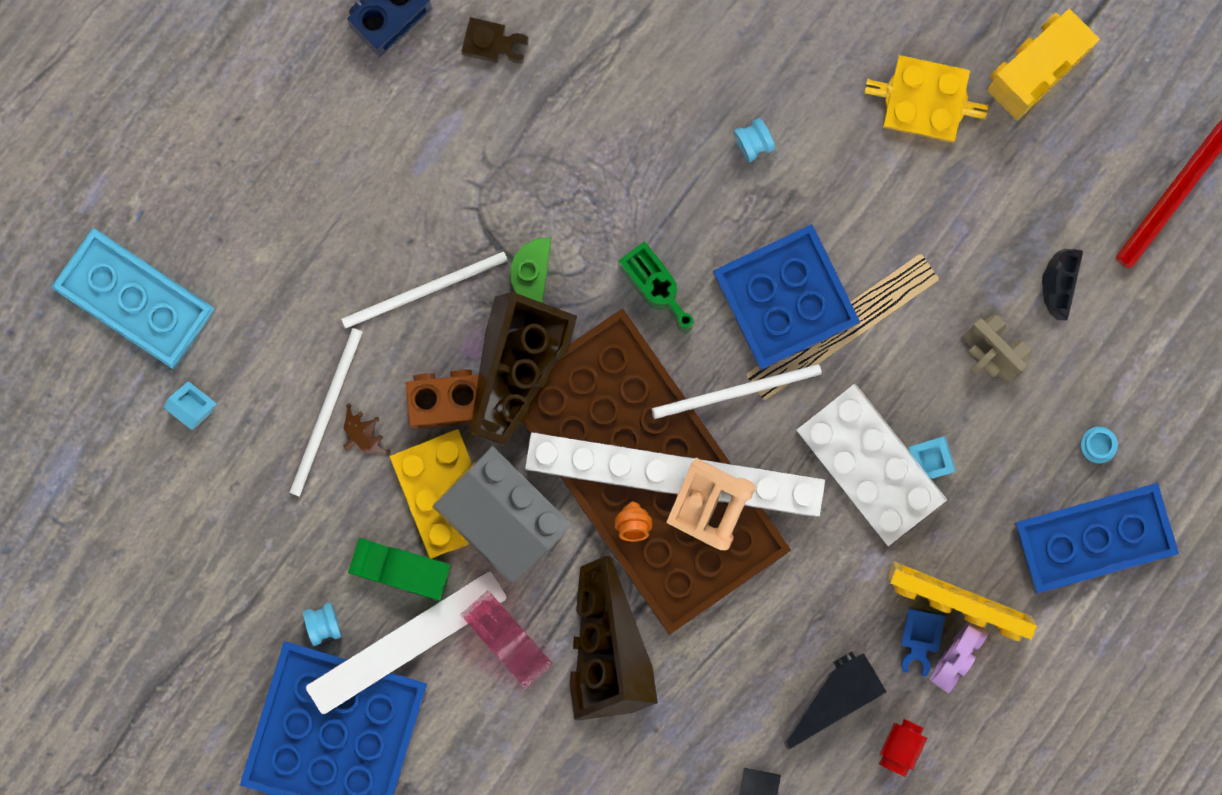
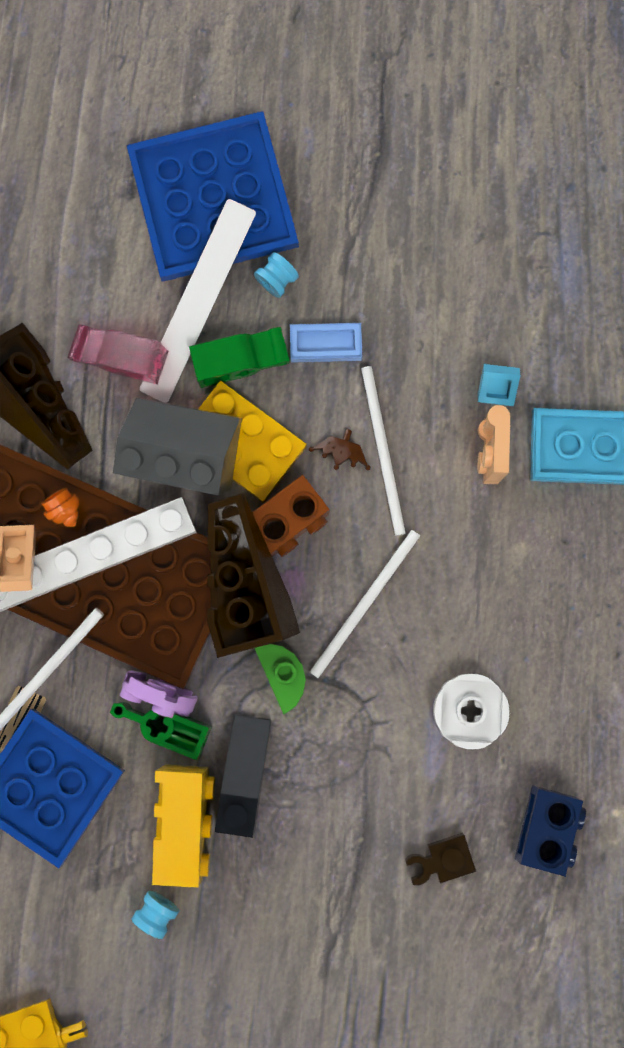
camera: 155 degrees right, 0 degrees up
(234, 342) = (496, 435): none -> light nougat plate
(315, 538) = (325, 342): none -> light blue tile
(393, 167) = (485, 727): none -> white plate
(614, 207) = (243, 776): none -> black slope
(638, 305) = (164, 696): none -> lavender plate
(688, 197) = (182, 825): none -> yellow wedge

